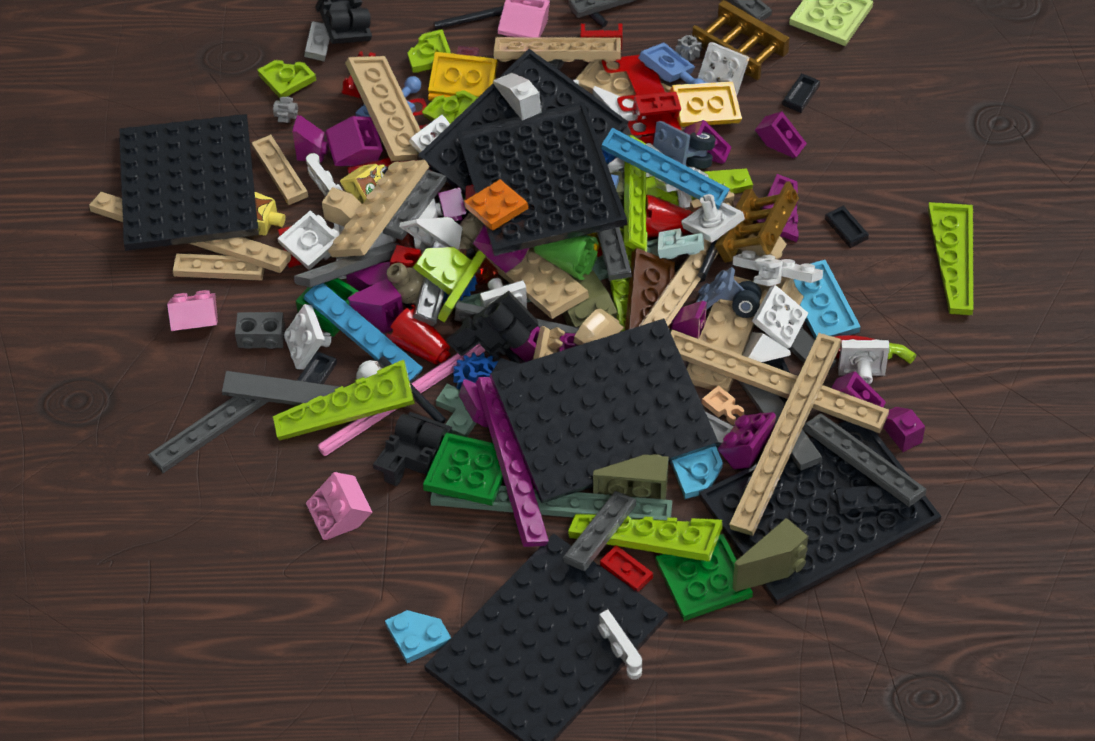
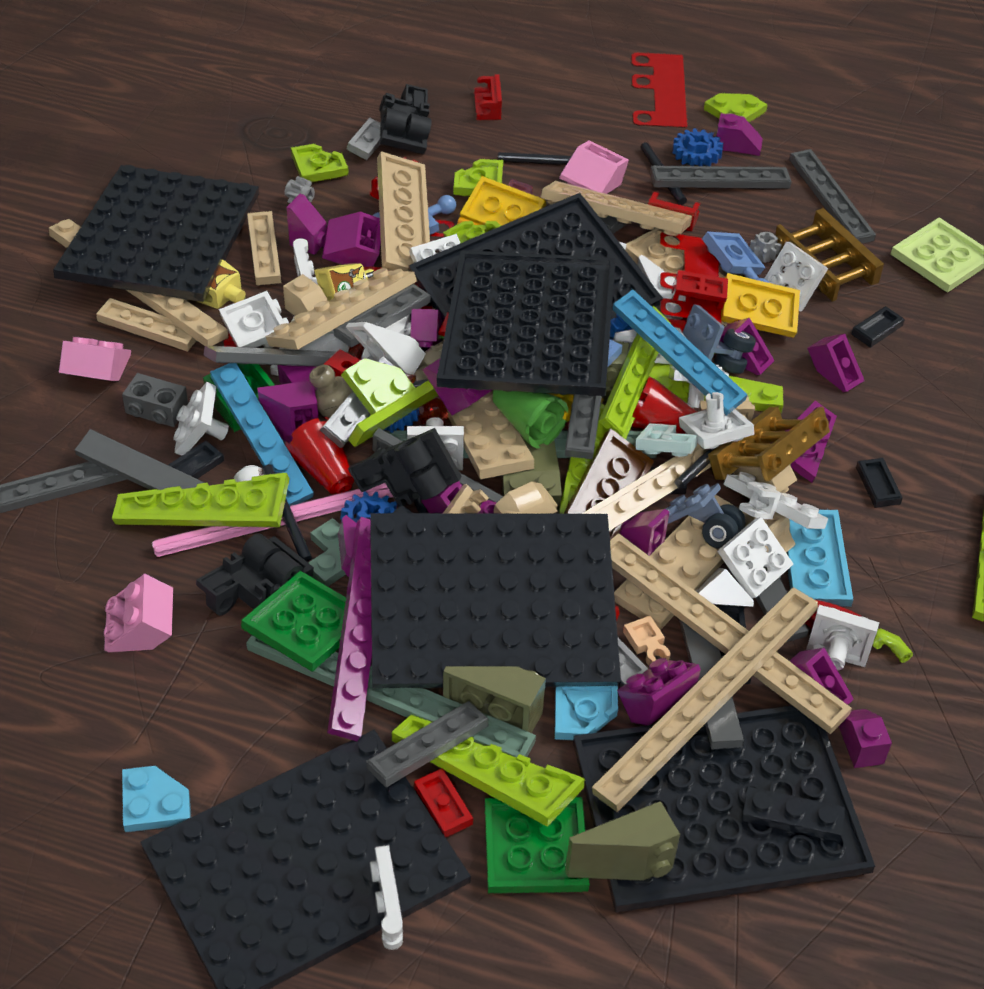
camera: 15 degrees right, 5 degrees down
(496, 204) = (463, 332): orange plate -> none
(519, 94) = (546, 233): white slope -> none
(865, 459) = (799, 763): dark grey tile -> none

